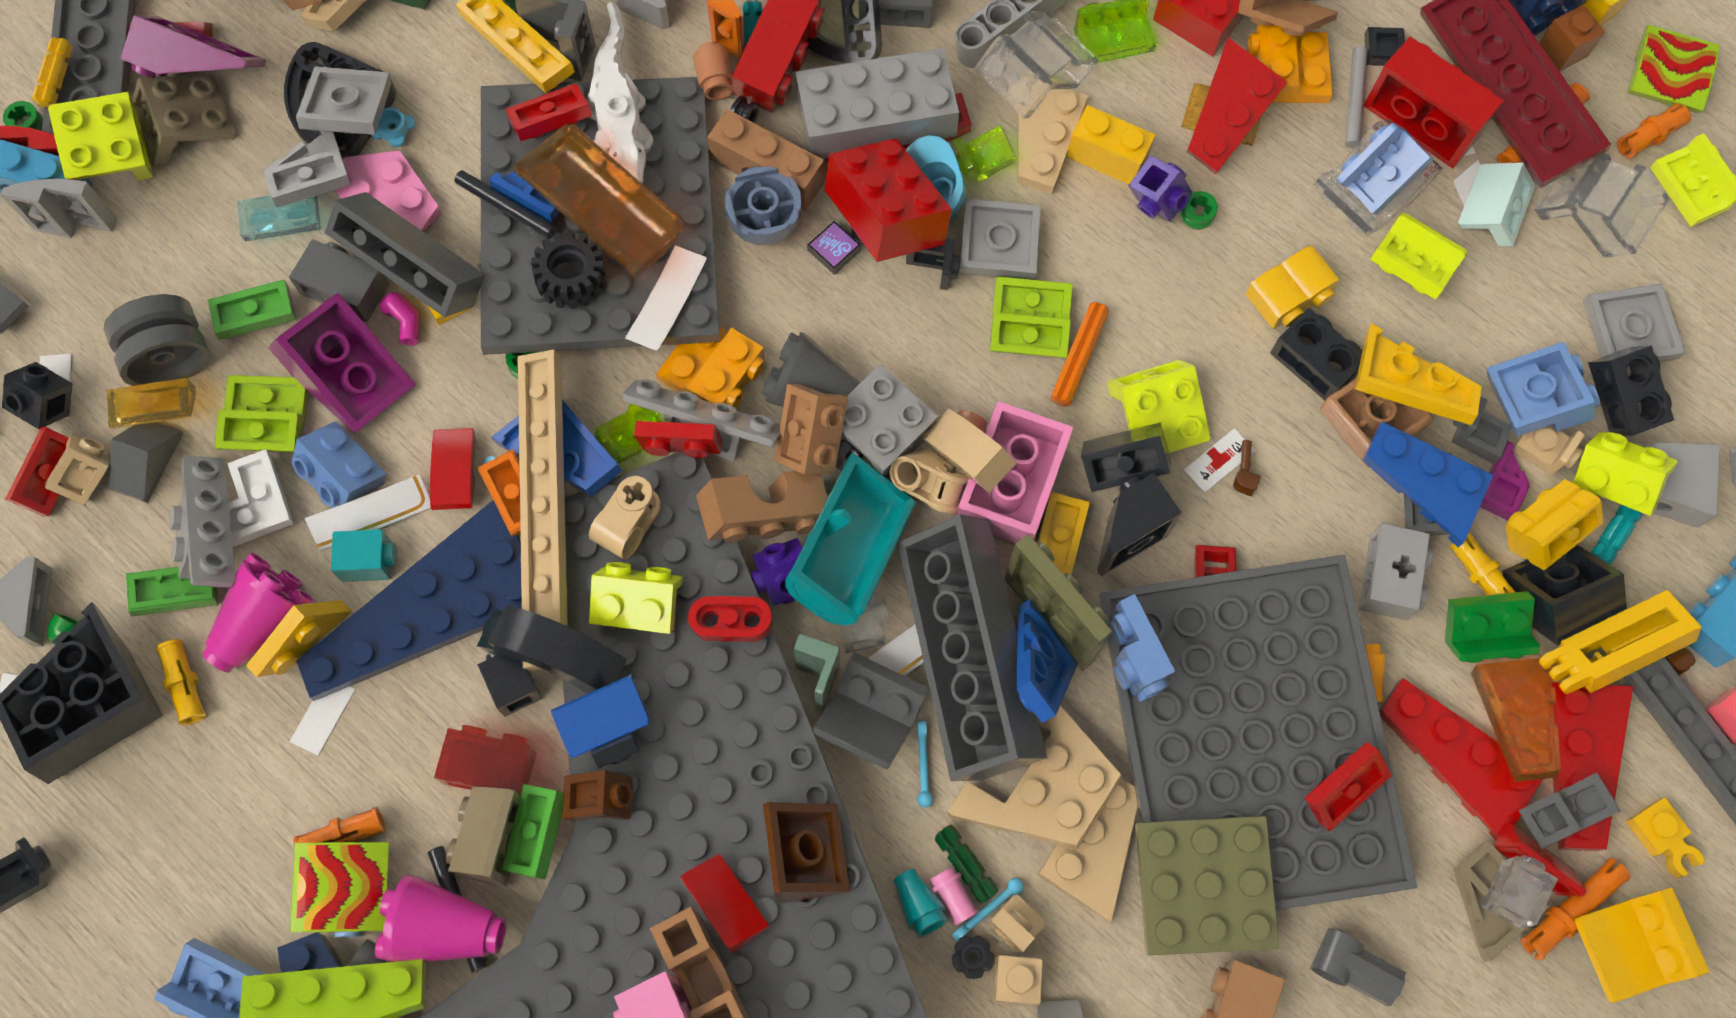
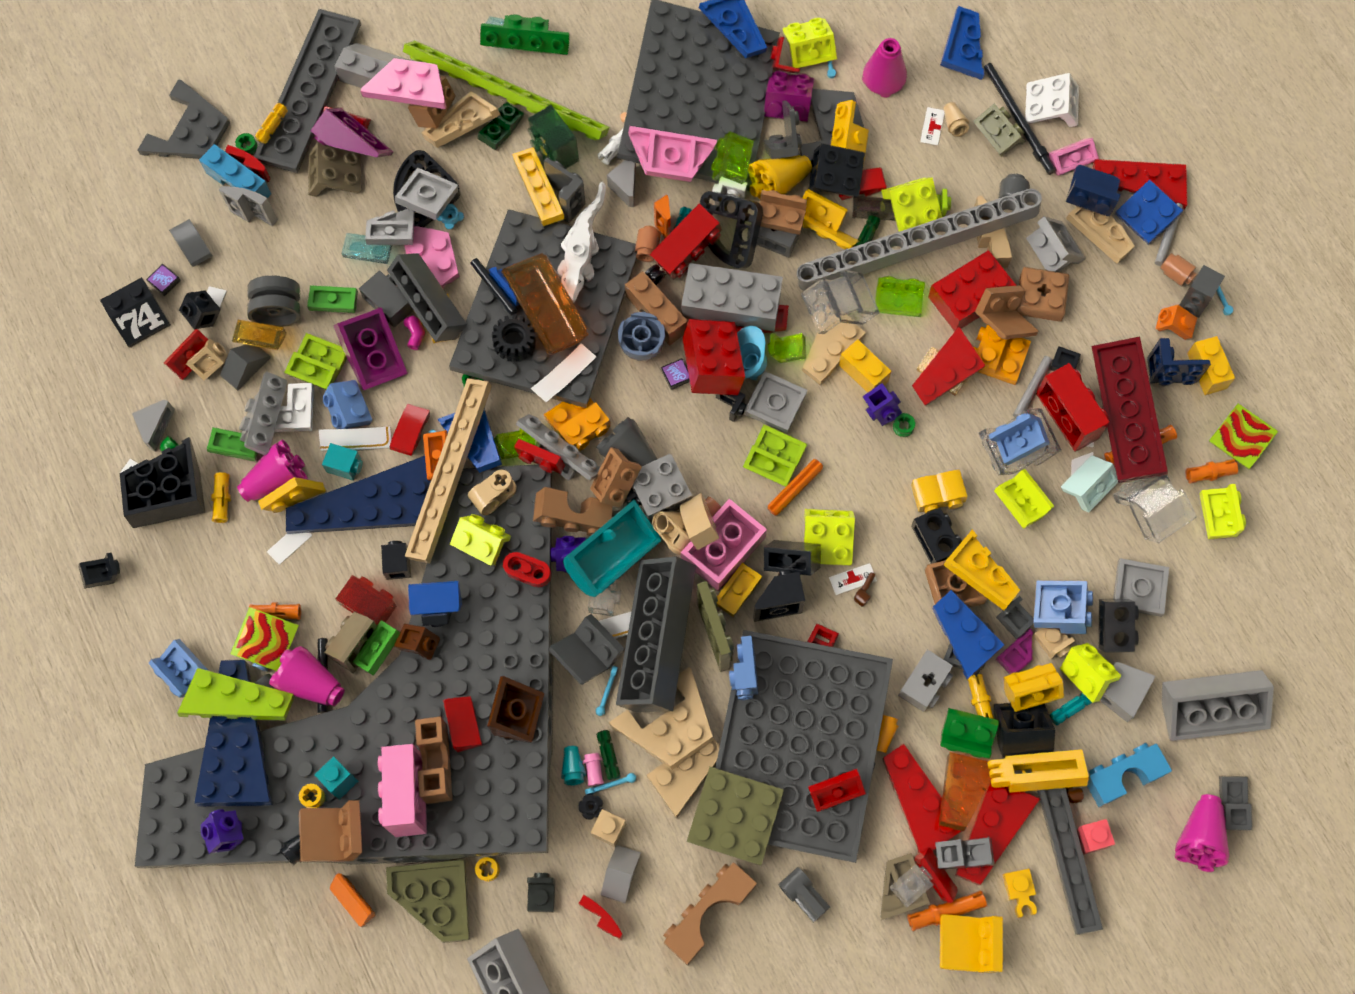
camera: 25 degrees right, 0 degrees up
(100, 137) = (284, 172): neon yellow bracket -> none
(548, 112) = (538, 239): red plate -> none
(551, 647) = (423, 550): black arch -> none
(820, 660) = (571, 614): sand green panel -> none
(1017, 924) = (622, 797): tan bracket -> none
(1042, 663) = (692, 657): blue wing -> none
(1571, 37) = (1183, 395): dark orange brick -> none

